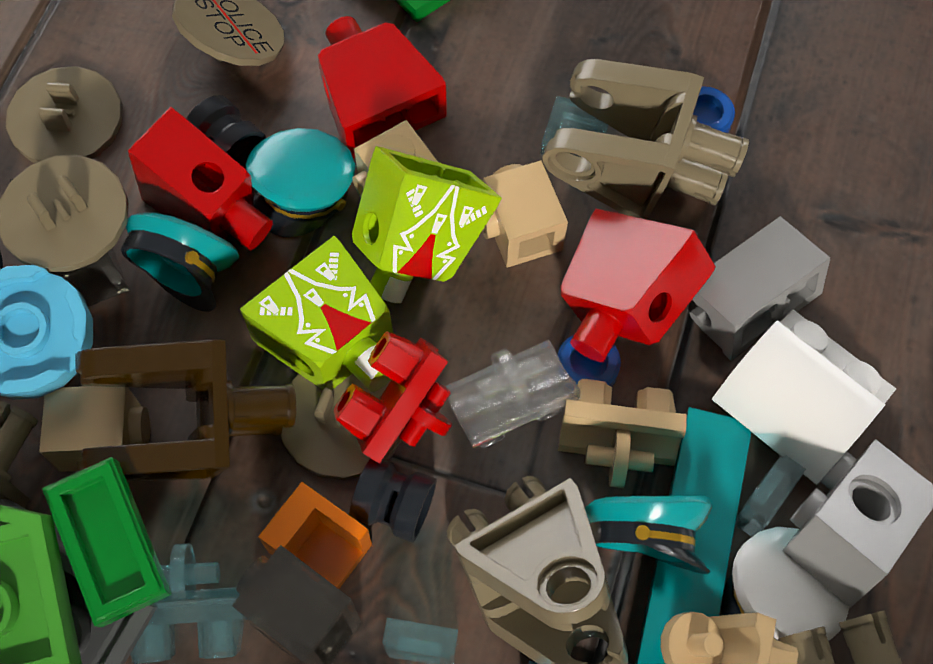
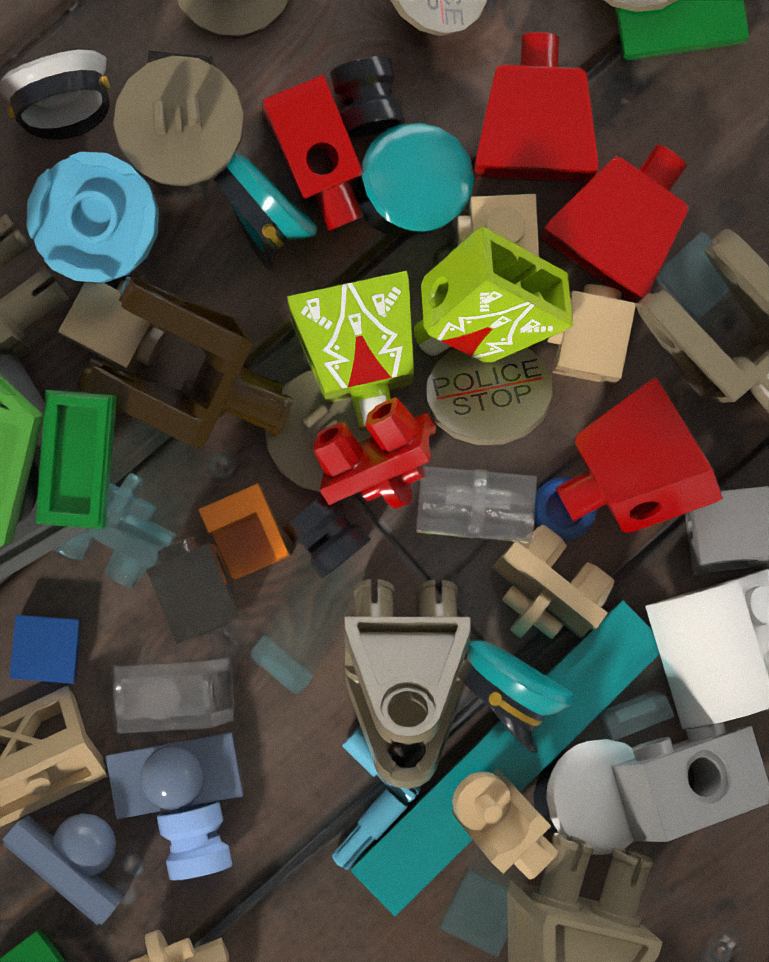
camera: 25 degrees right, 20 degrees up
(469, 304) = (489, 399): none -> dark tan piece
(489, 116) = (622, 223): none -> red torso

